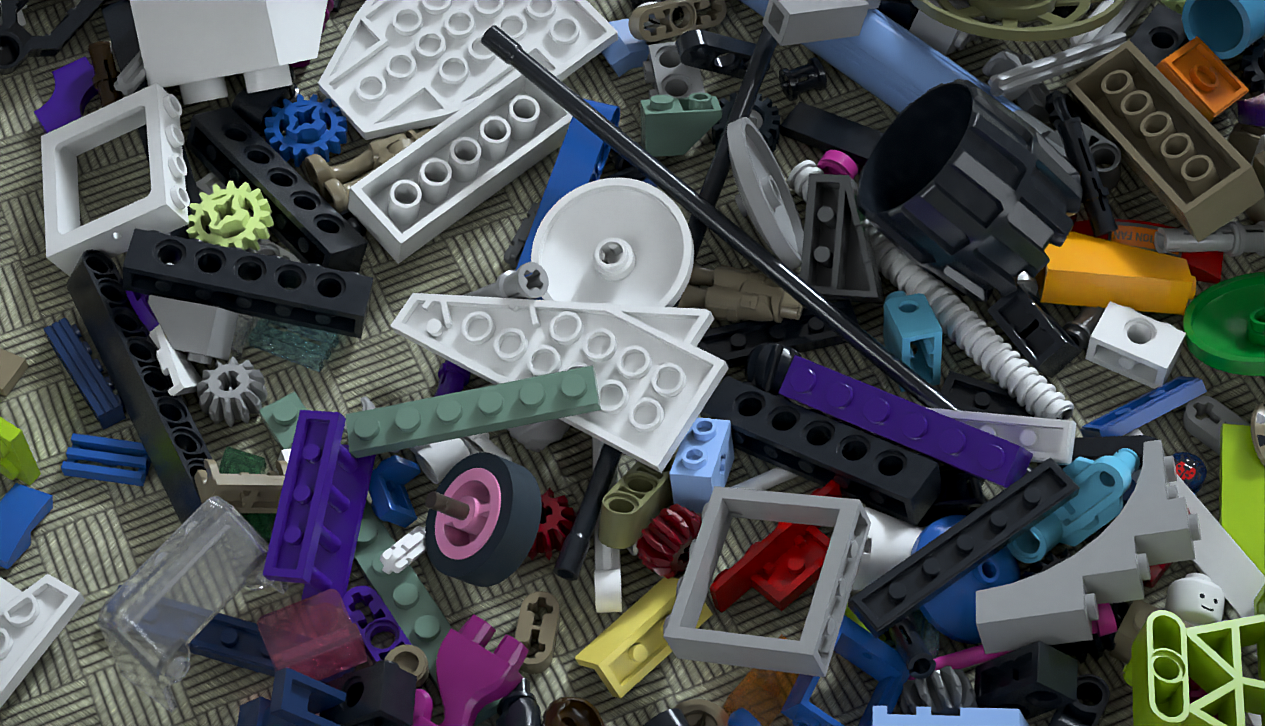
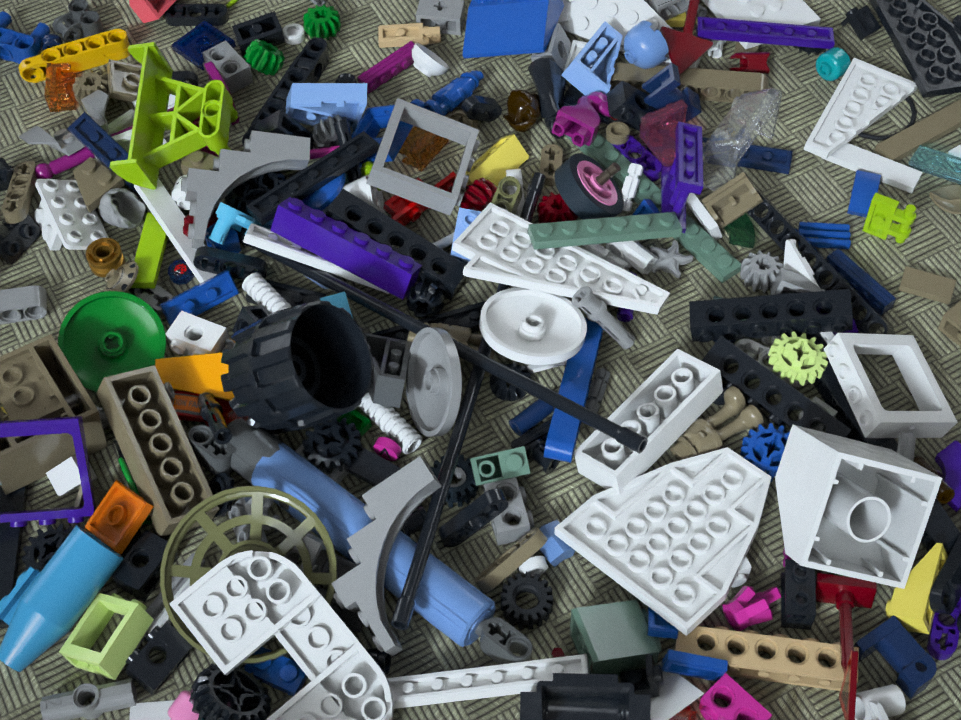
camera: 175 degrees right, 0 degrees up
(1054, 65) = (224, 513): light grey axle -> none

